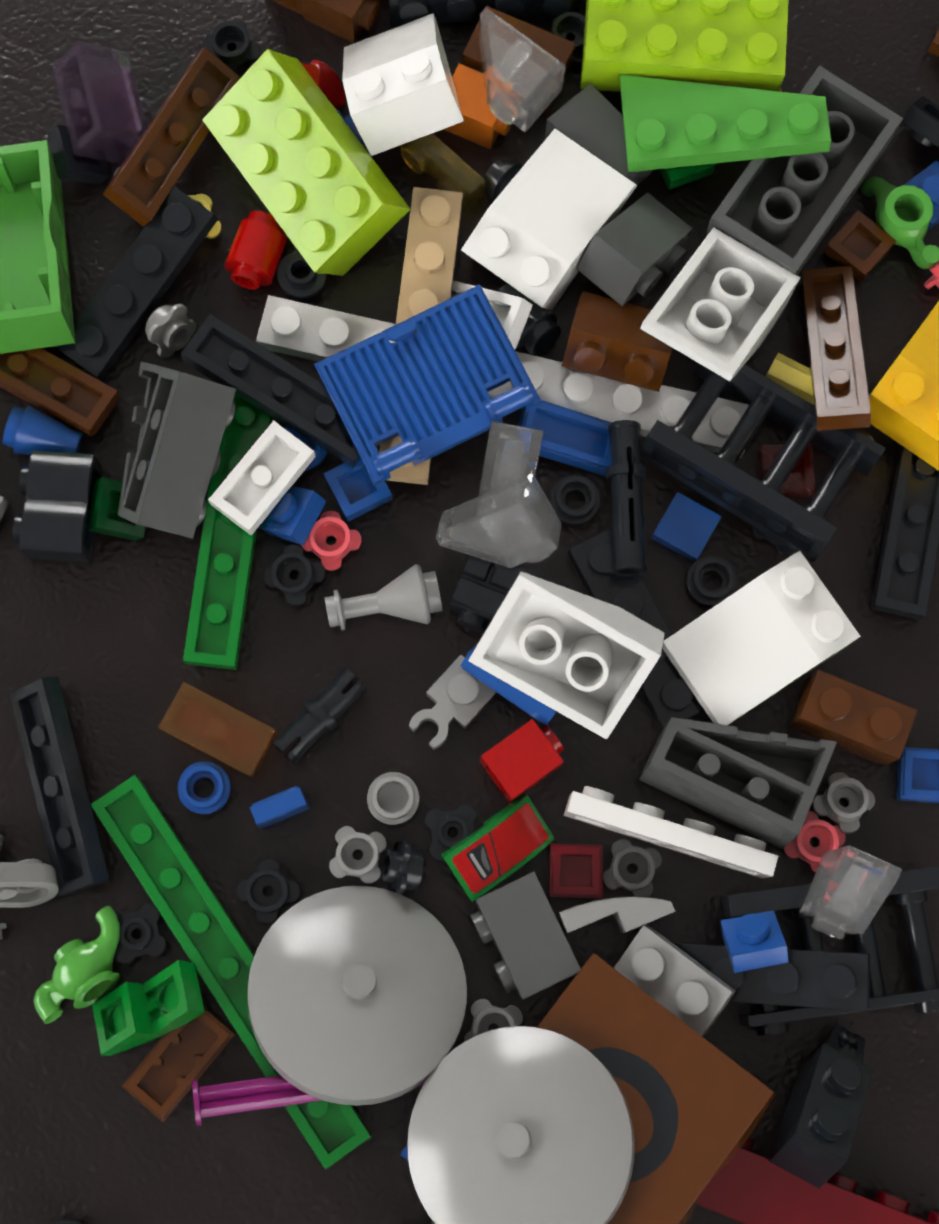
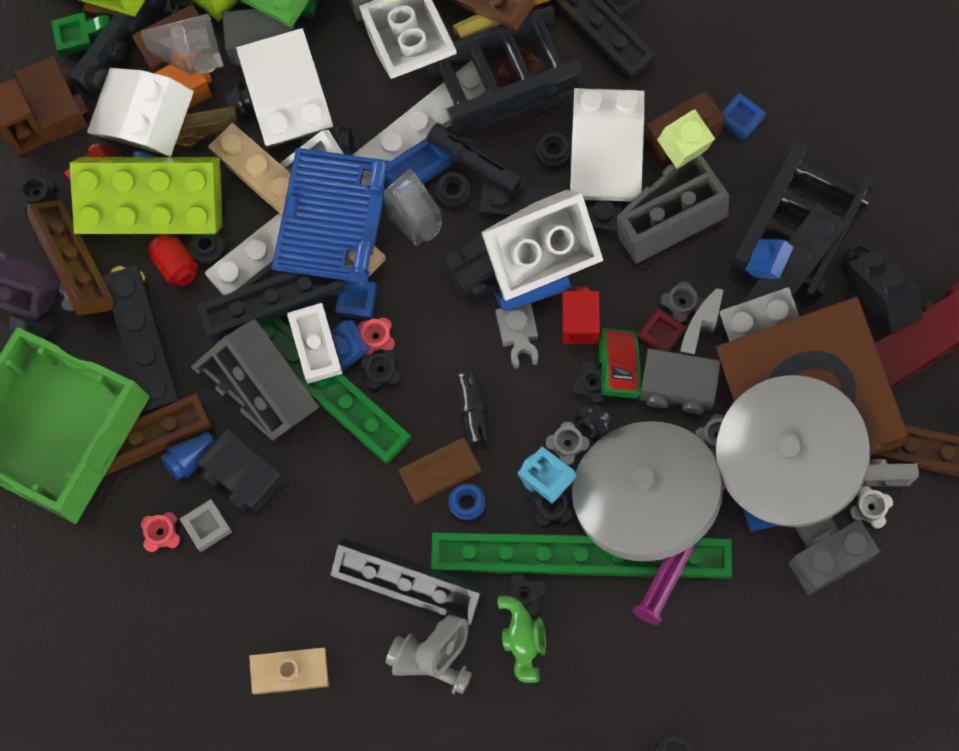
camera: 45 degrees left, 5 degrees down
(104, 512) = (264, 446): dark green plate -> none
(148, 1010) = (574, 613): green slope -> none
(169, 329) = (182, 339): light grey plate -> none
(175, 1061) = (613, 618): reddish brown plate -> none
(279, 807) = (510, 465): blue tile -> none
(292, 859) = (546, 474): none -> medium azure bracket
(393, 798) = (549, 402): light grey plate -> none
(408, 596) = (441, 314): light grey piece -> none
(503, 525) = (442, 231): clear slope -> none
(611, 345) = (382, 102): reddish brown brick -> none
(635, 250) = (339, 55): dark grey brick -> none
(686, 527) = (513, 142): blue tile -> none
(691, 838) = (687, 259): white plate -> none
(827, 732) = (685, 139): none -> yellowish green brick
(829, 839) = (742, 189): coral plate -> none
(848, 891) = (777, 187): clear slope -> none
(854, 792) = (729, 158): light grey plate -> none

